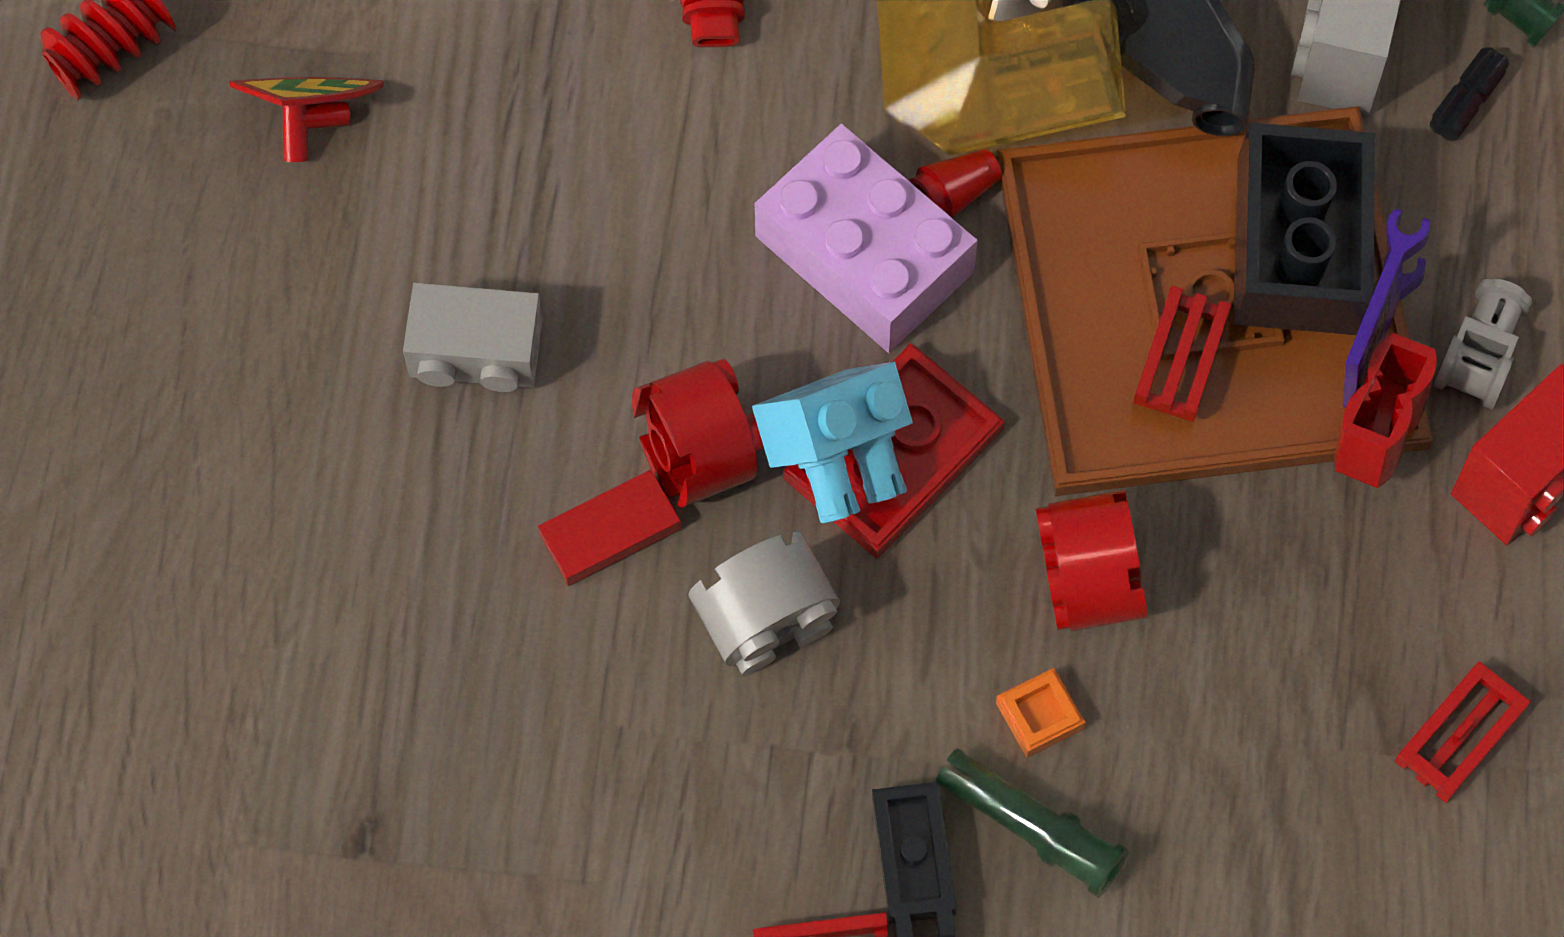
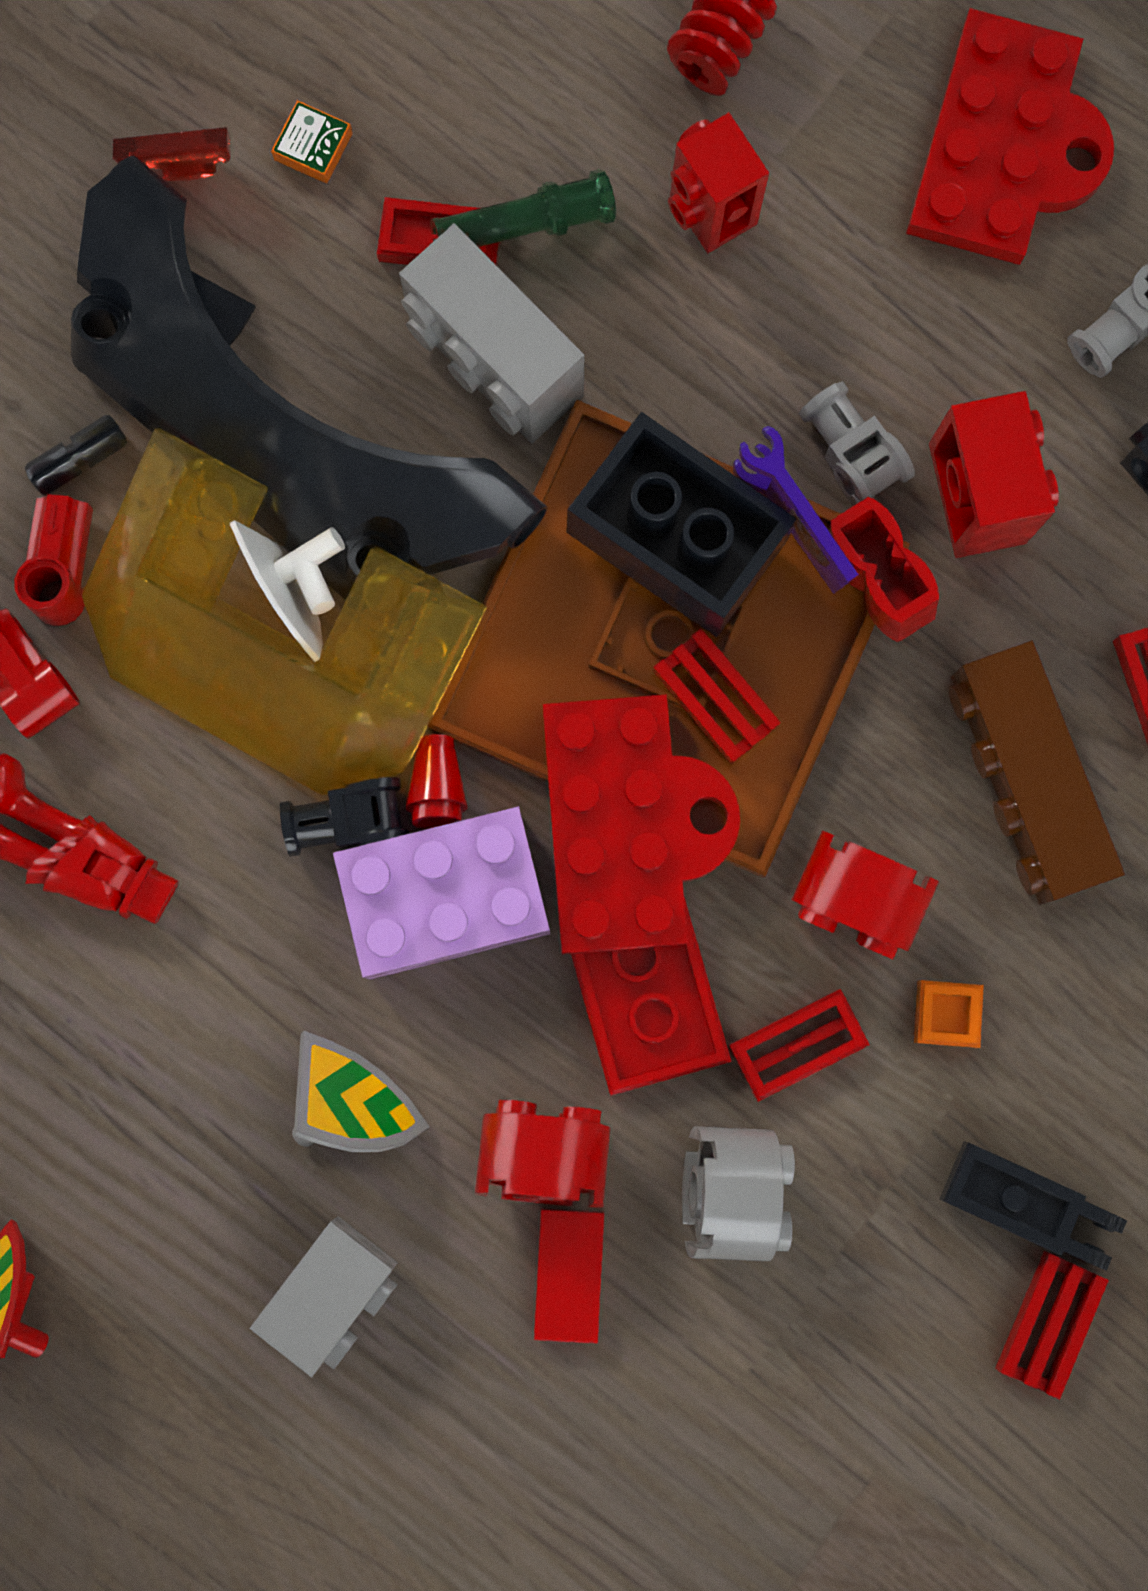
camera: 60 degrees left, 15 degrees up
(644, 263) = (349, 1101): none -> shield
(827, 418) = (617, 1038): medium azure brick -> none
(884, 128) = (348, 815): none -> black connector
(915, 622) = (751, 1068): none -> red tile
(1023, 345) = (626, 823): none -> red plate
(1055, 836) = (1069, 1072): clear green pin -> none
(1301, 656) = (1034, 773): none -> reddish brown brick
(1466, 96) = (624, 310): black piece -> none

